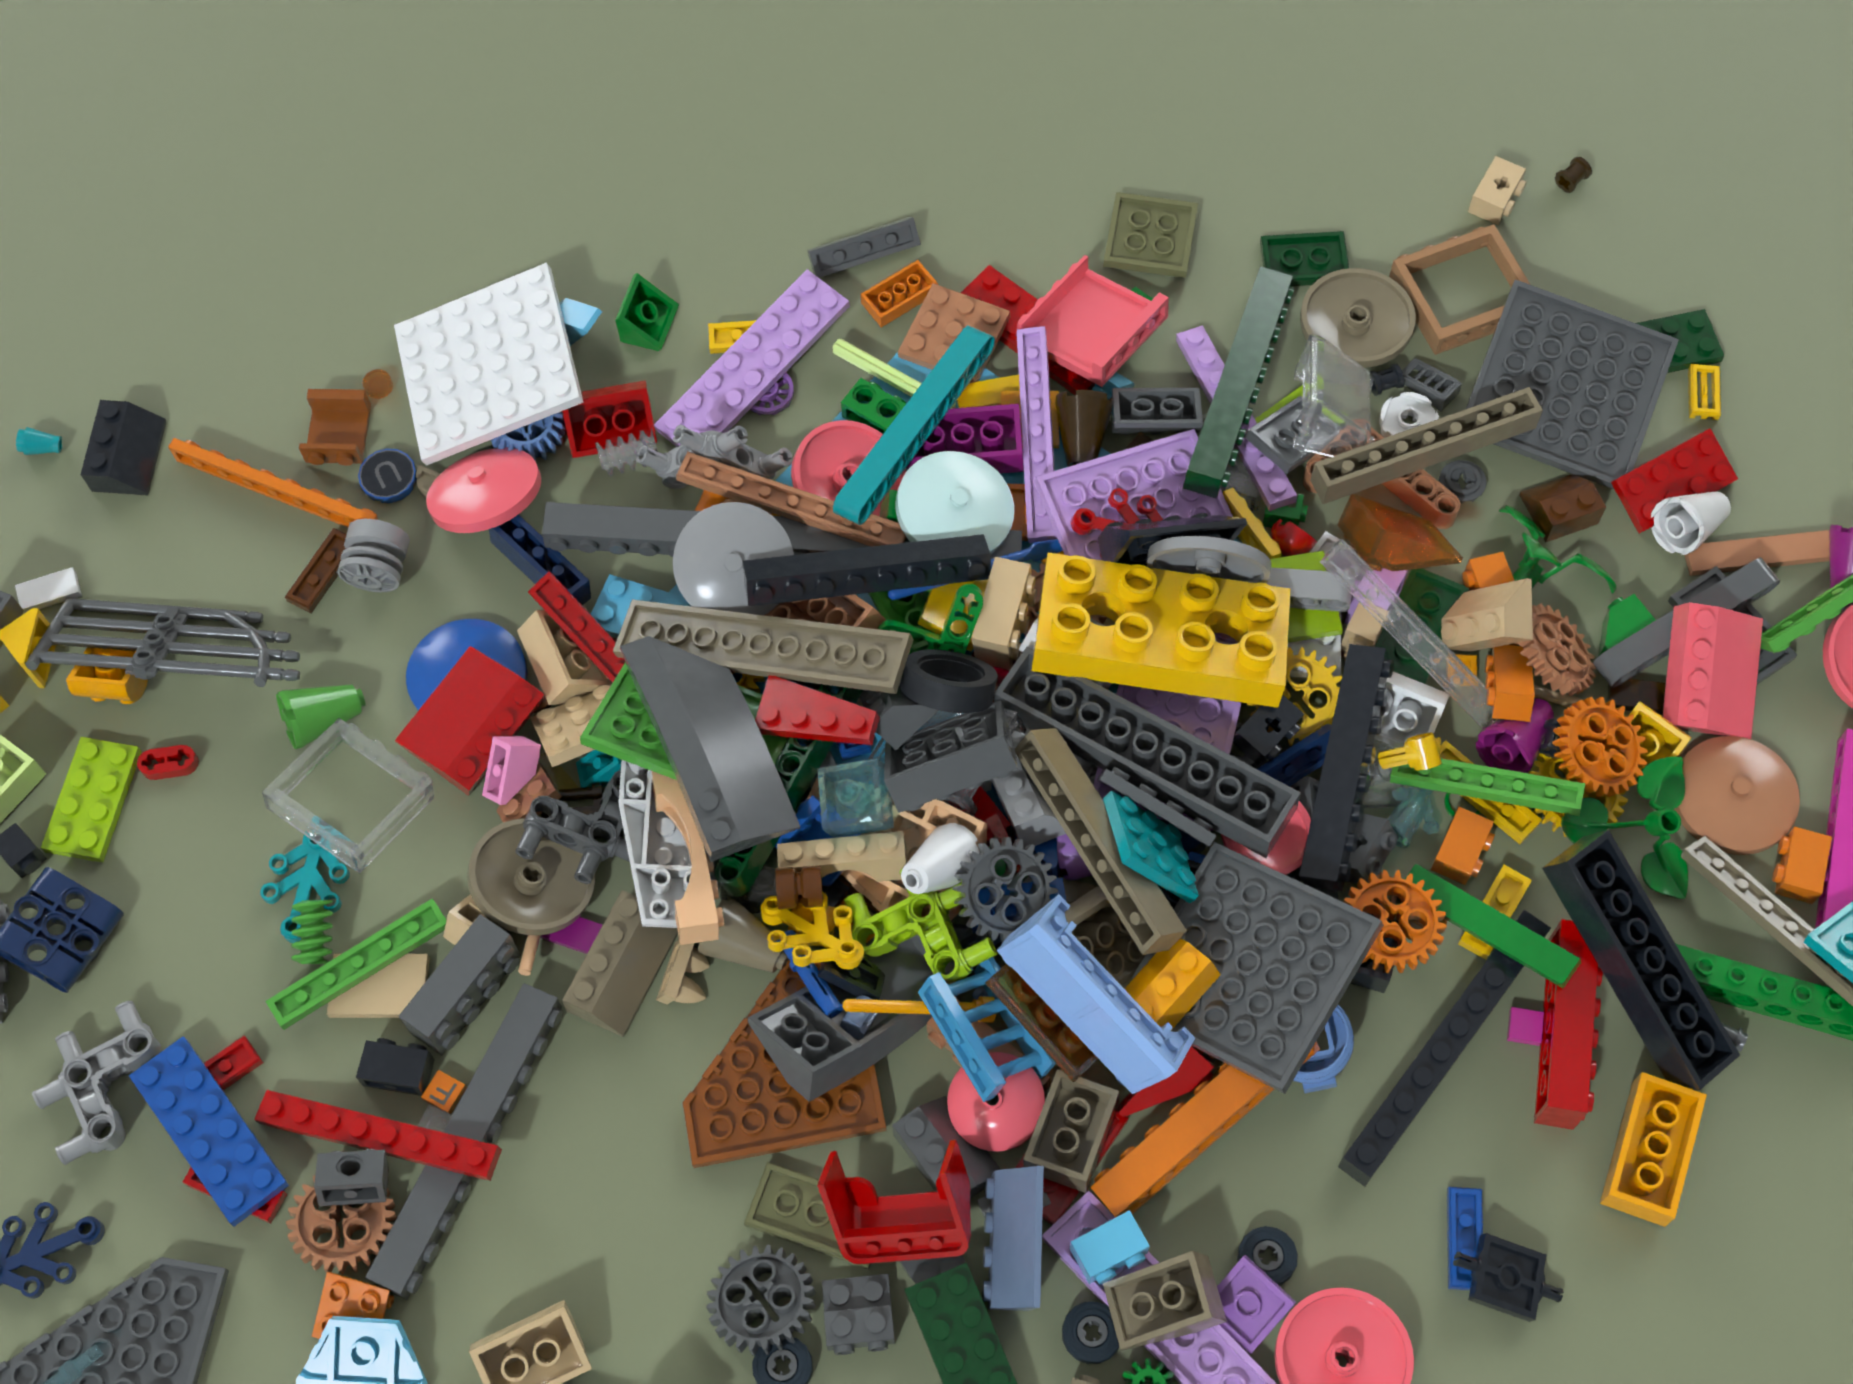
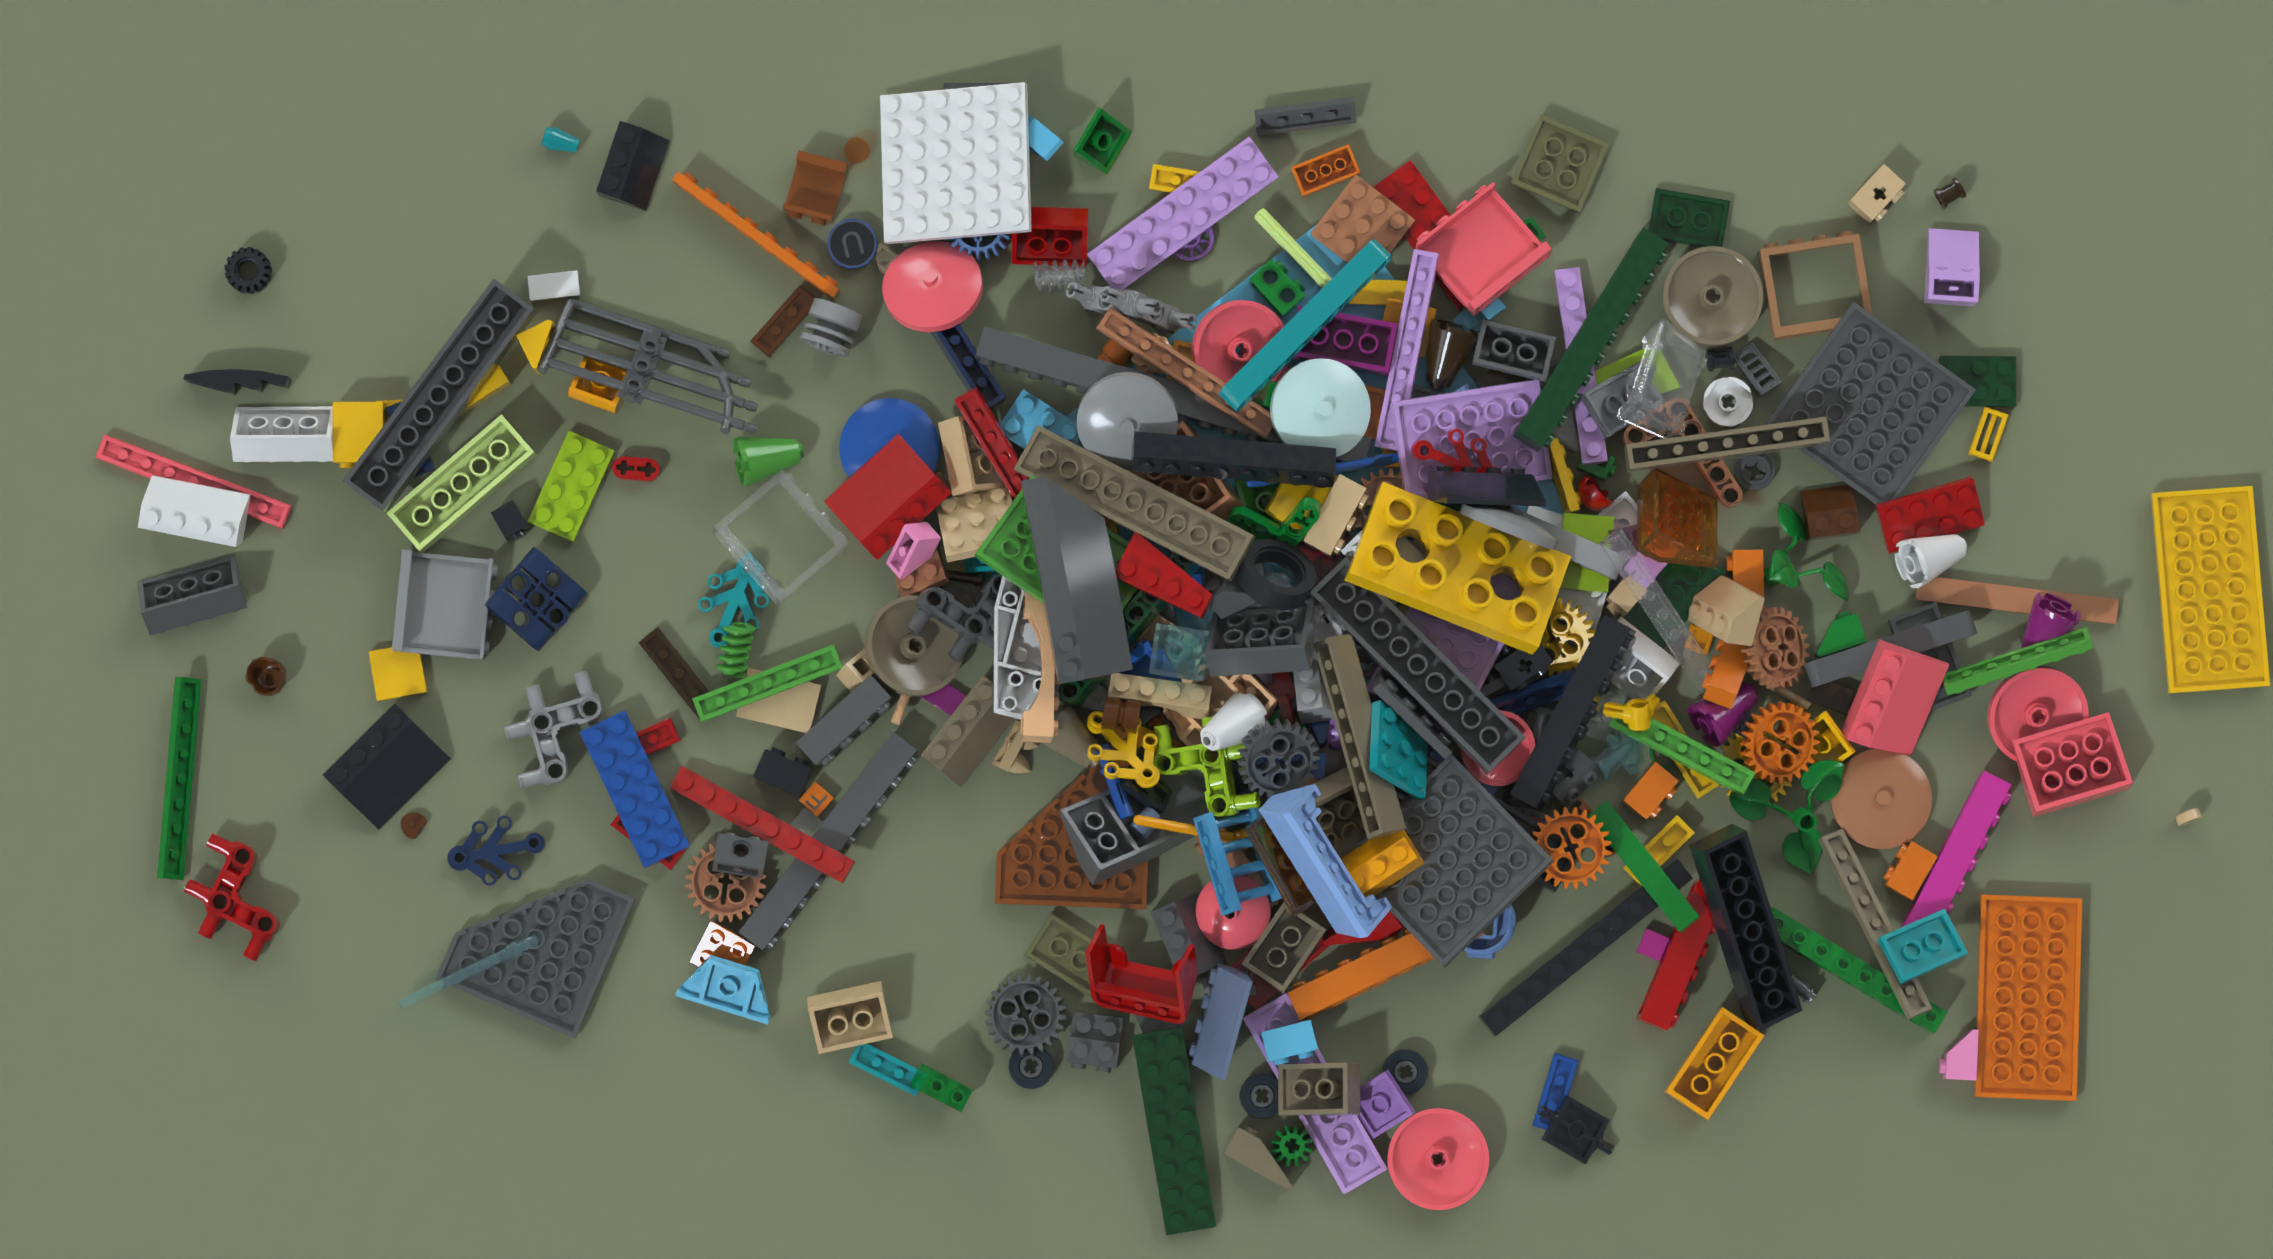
camera: 10 degrees right, 20 degrees up
(240, 975) = (673, 667): none -> dark brown tile
(1605, 242) = (1952, 267): none -> lavender slope

